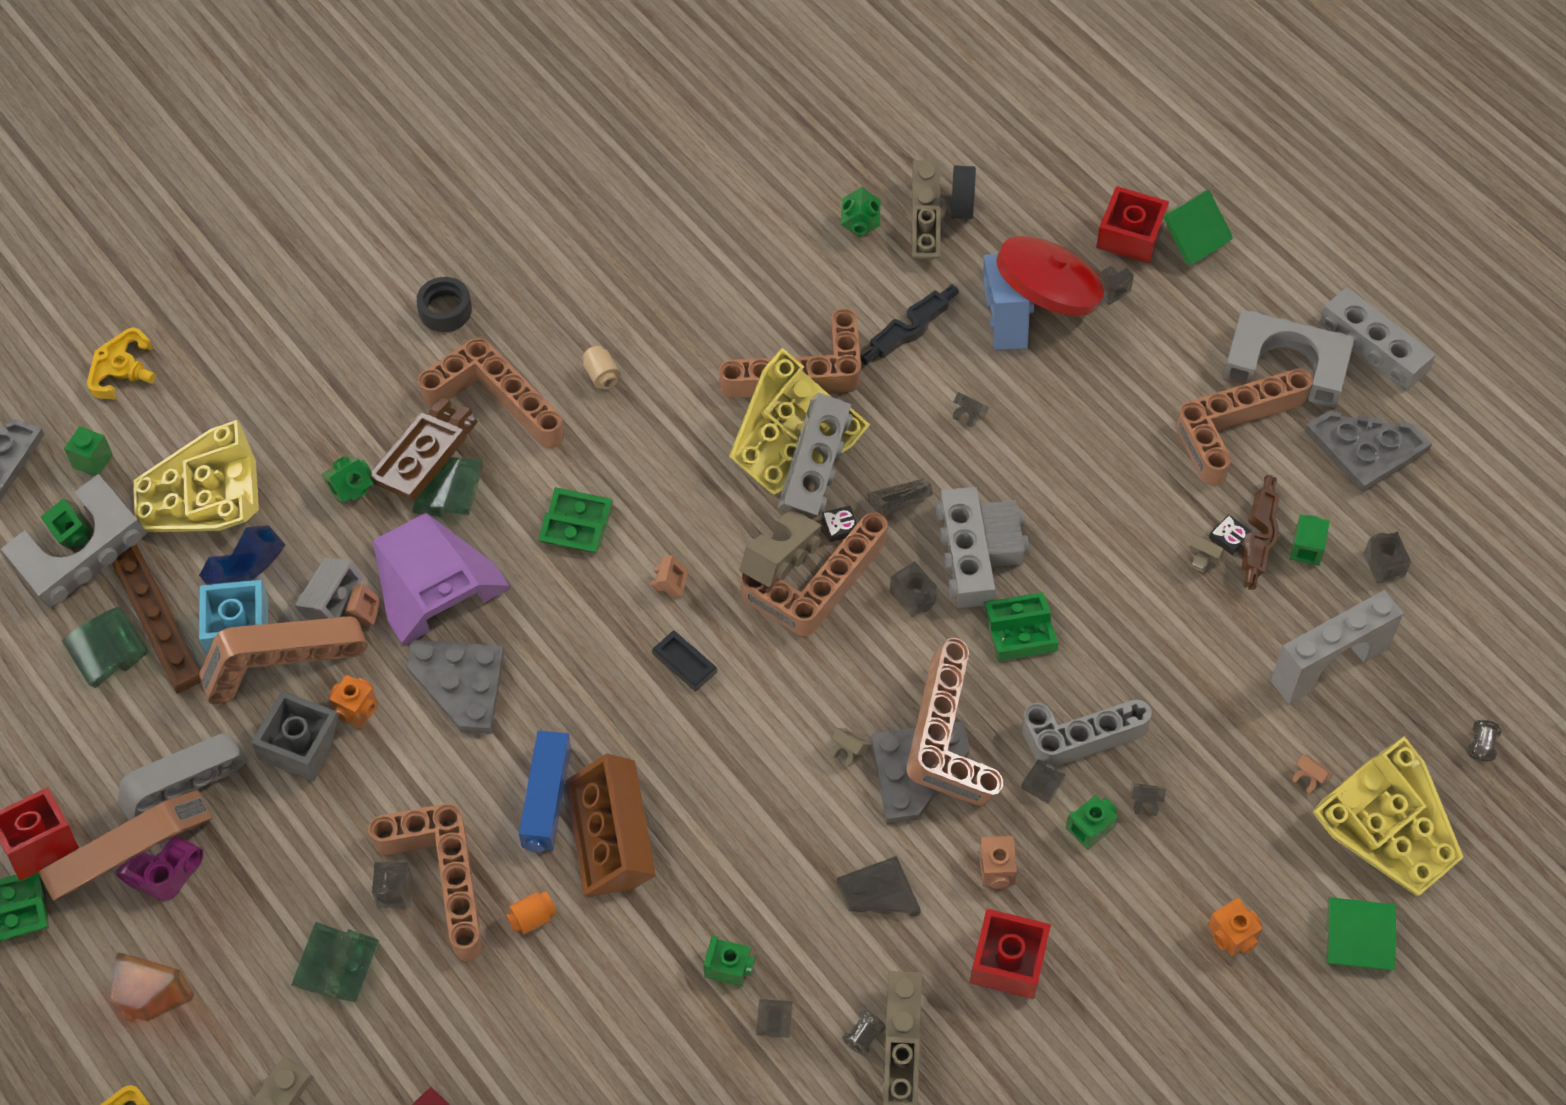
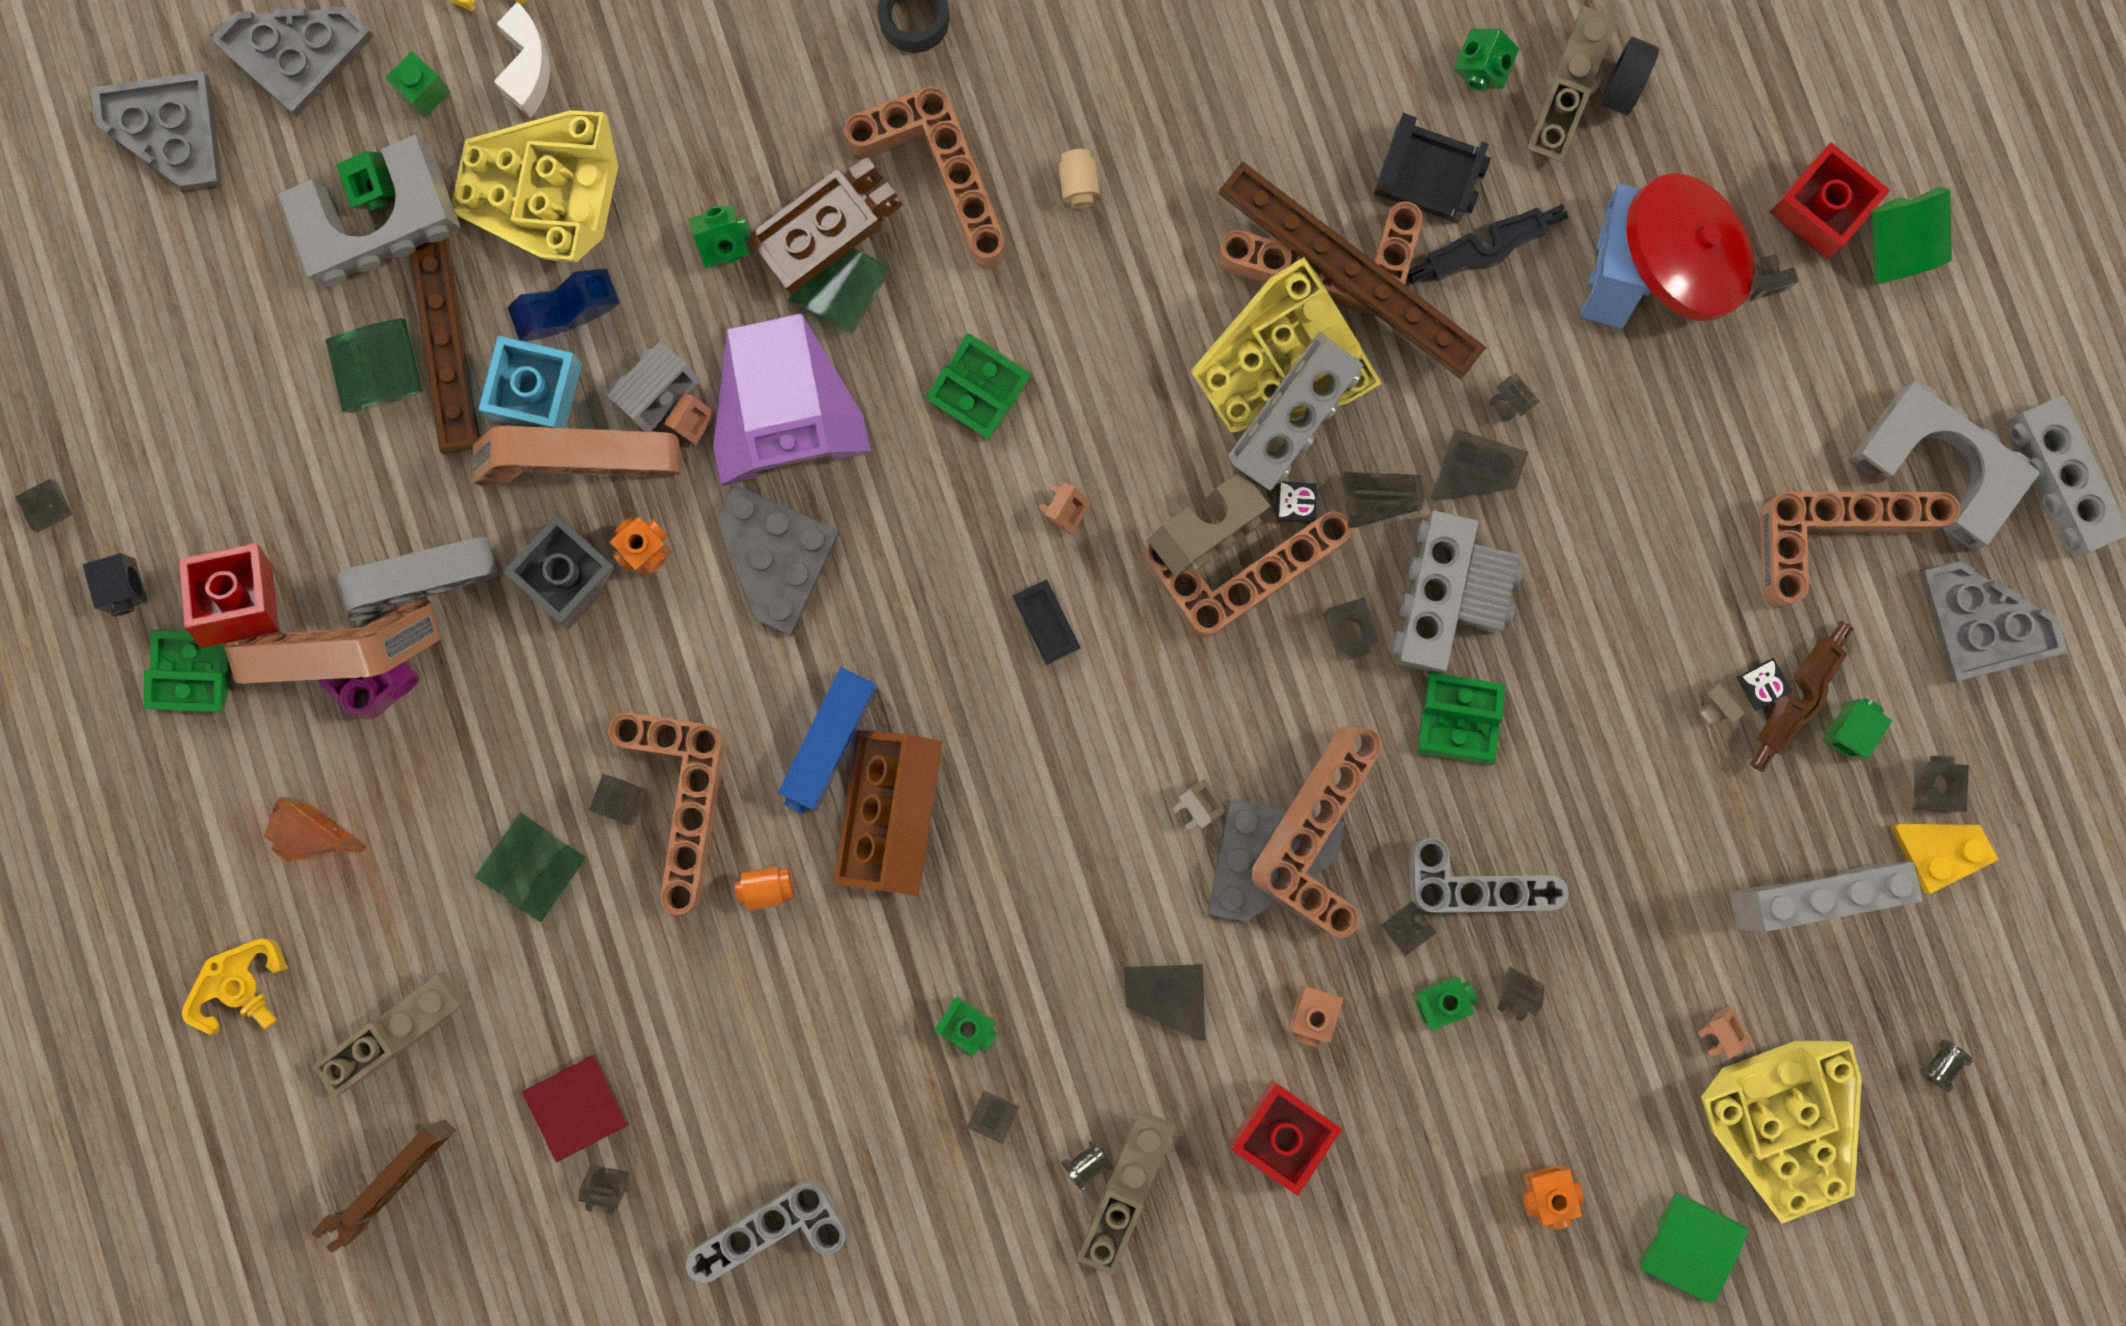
camera: 15 degrees right, 25 degrees up
(168, 425) = (528, 74): none -> white brick
(821, 359) = (1351, 270): none -> reddish brown tile
(851, 288) = (1432, 171): none -> black panel
(962, 459) = (1477, 467): none -> clear smoke wing
(1417, 599) = (1943, 851): none -> yellow wing

